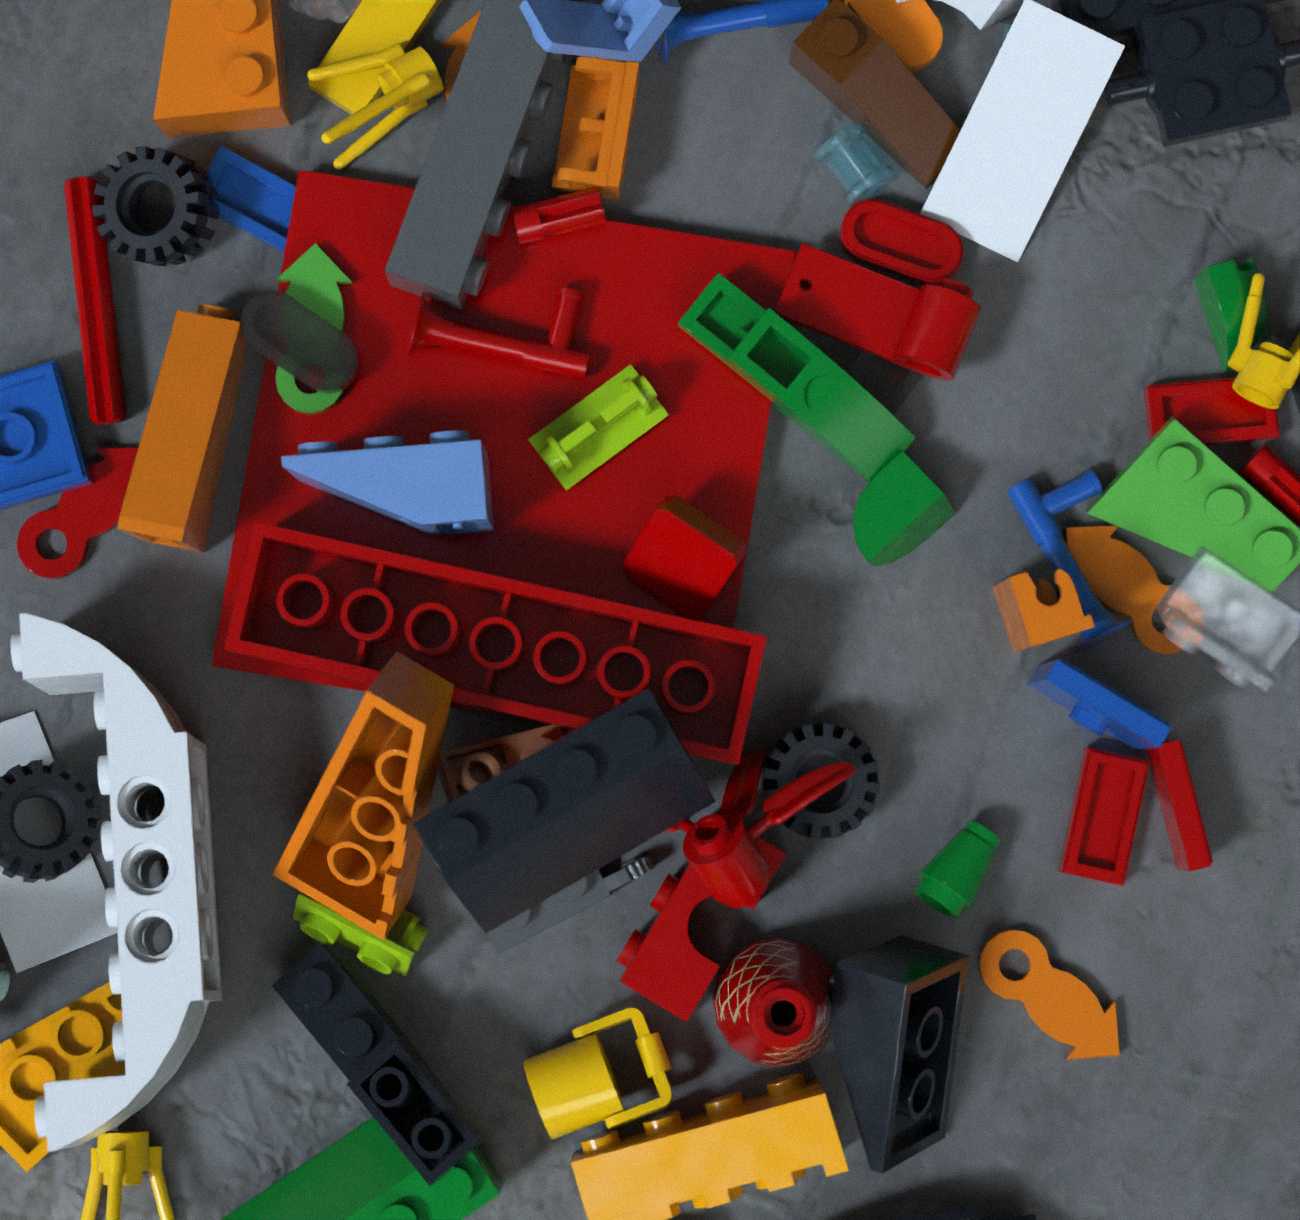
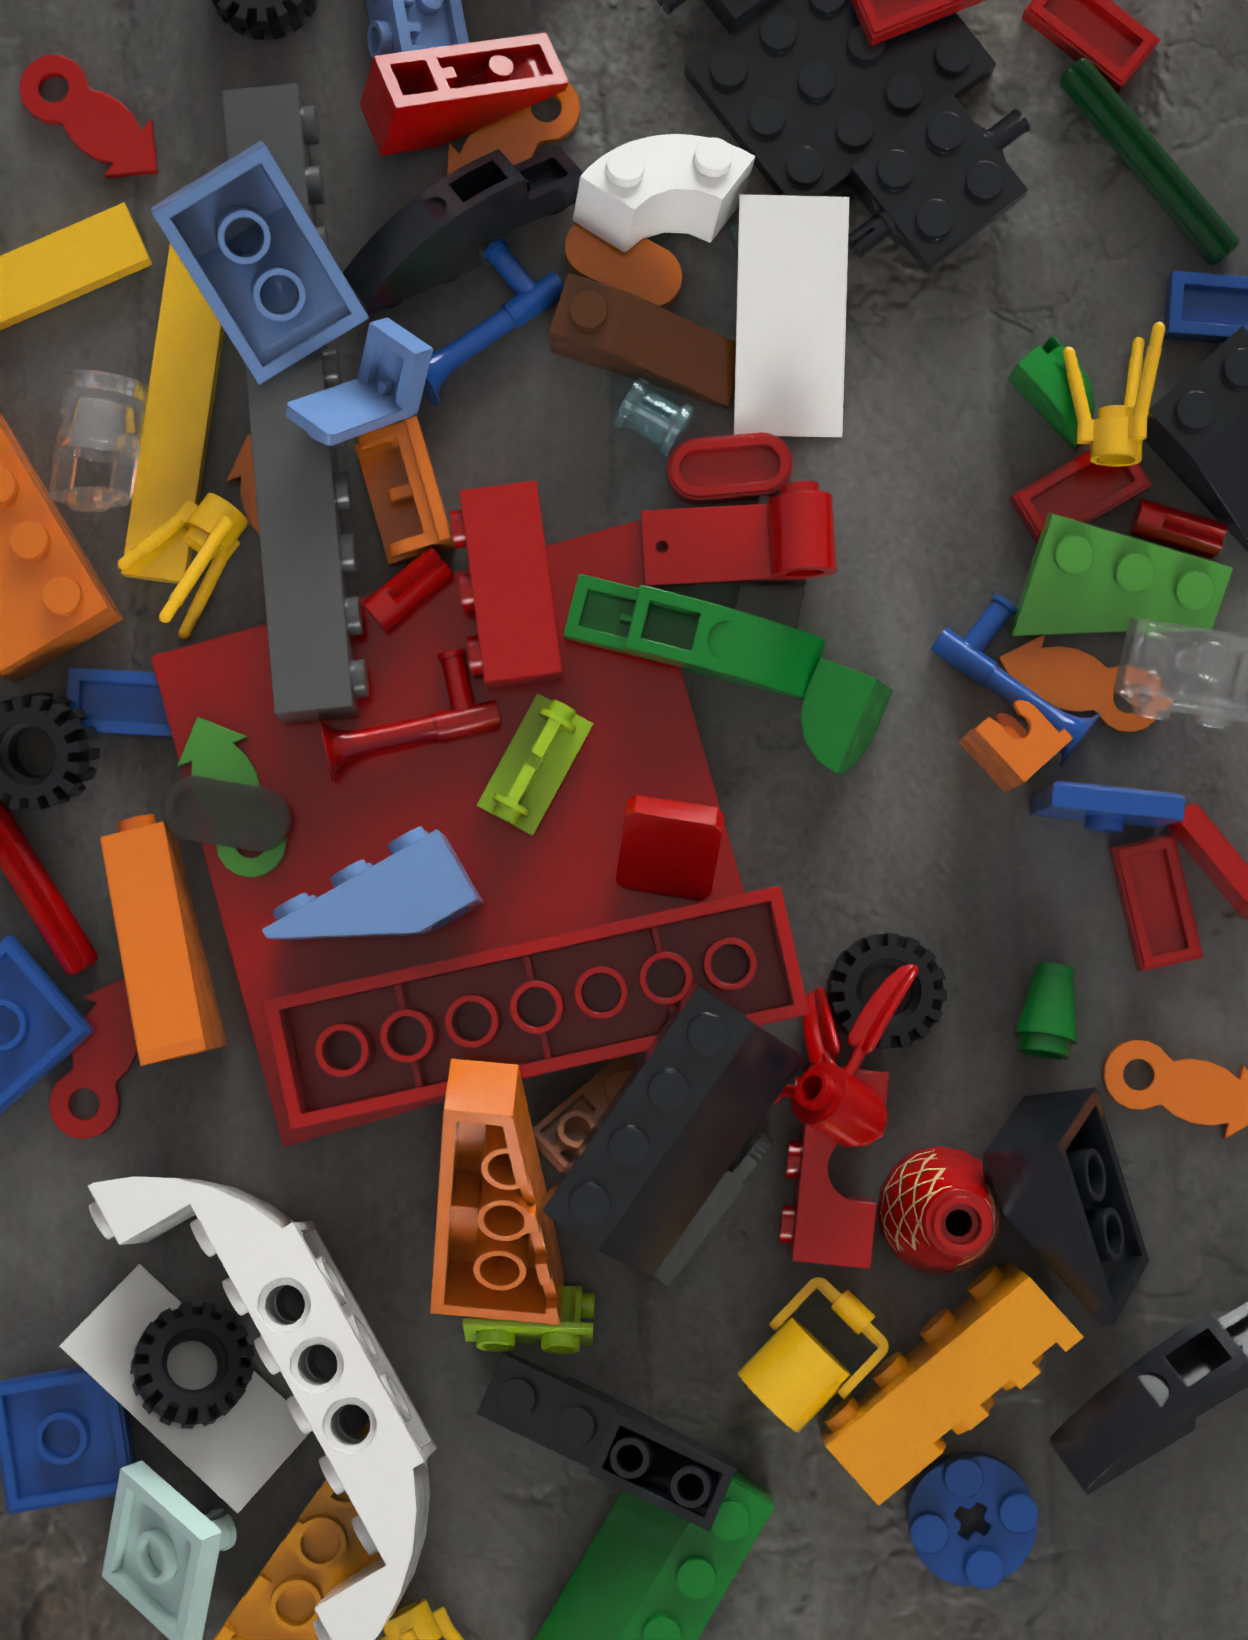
camera: 25 degrees left, 0 degrees up
(649, 254) = (507, 585): none -> red brick

